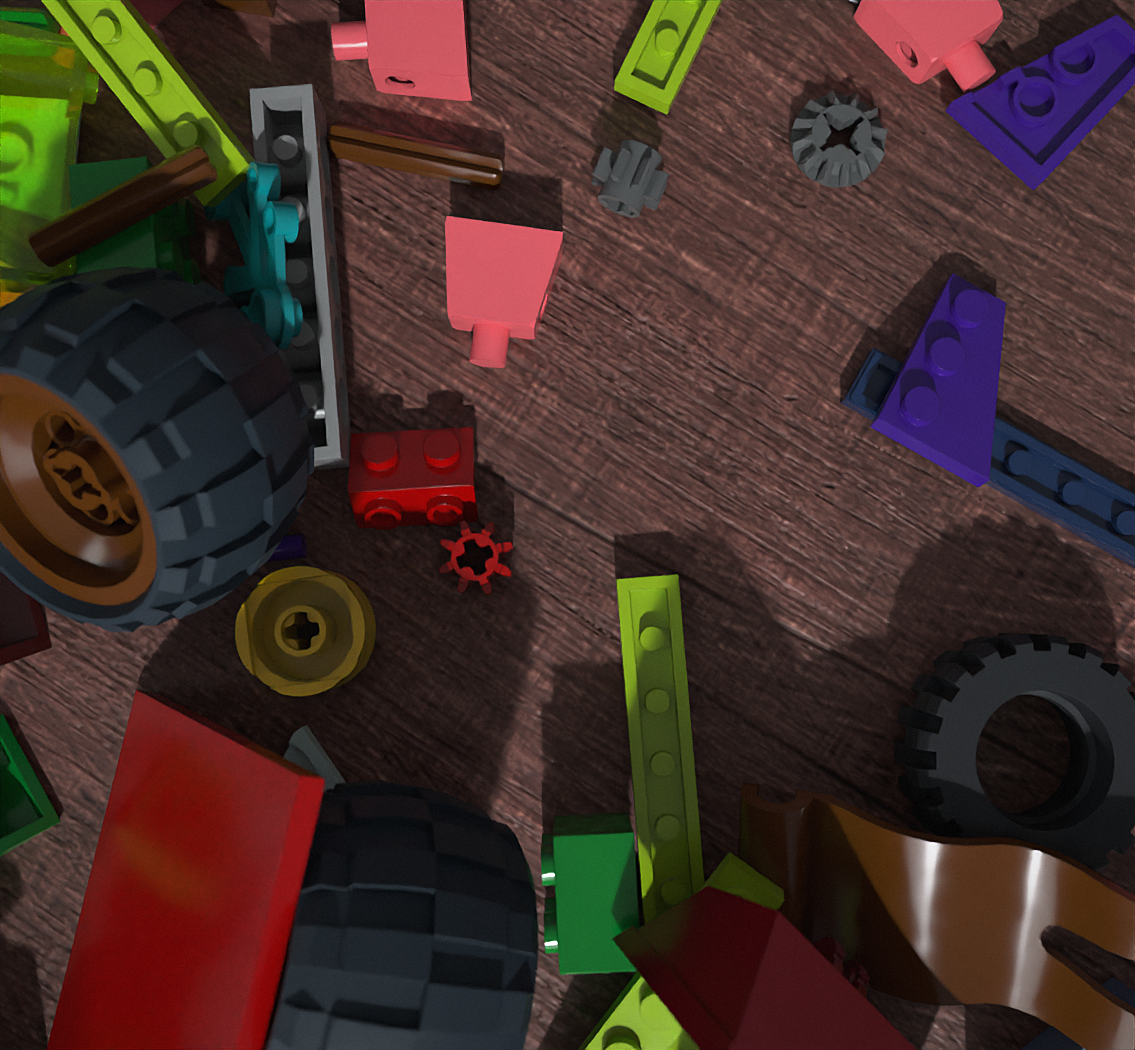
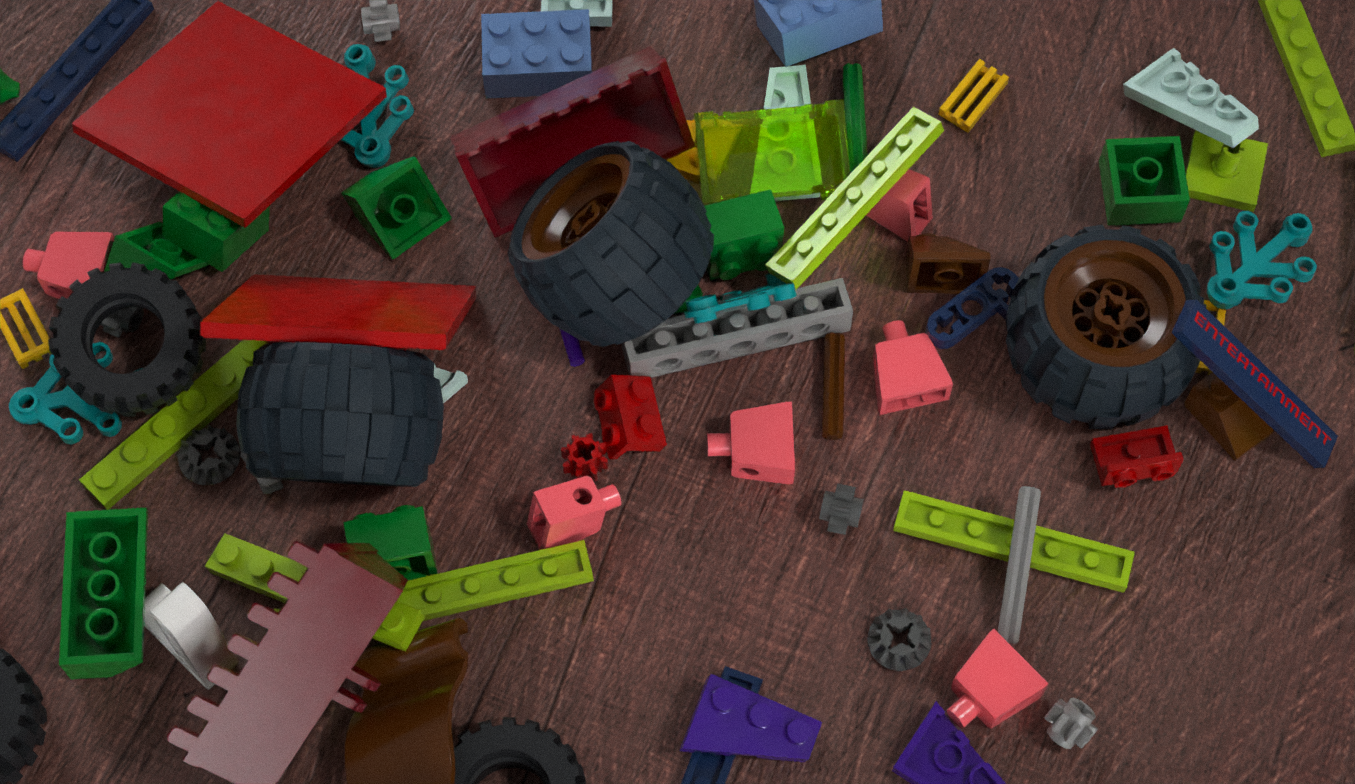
camera: 85 degrees right, 20 degrees down
(122, 206) = (750, 219): reddish brown axle -> none
(281, 603) = (520, 387): yellow brick -> none
(576, 612) = (569, 511): none -> coral torso

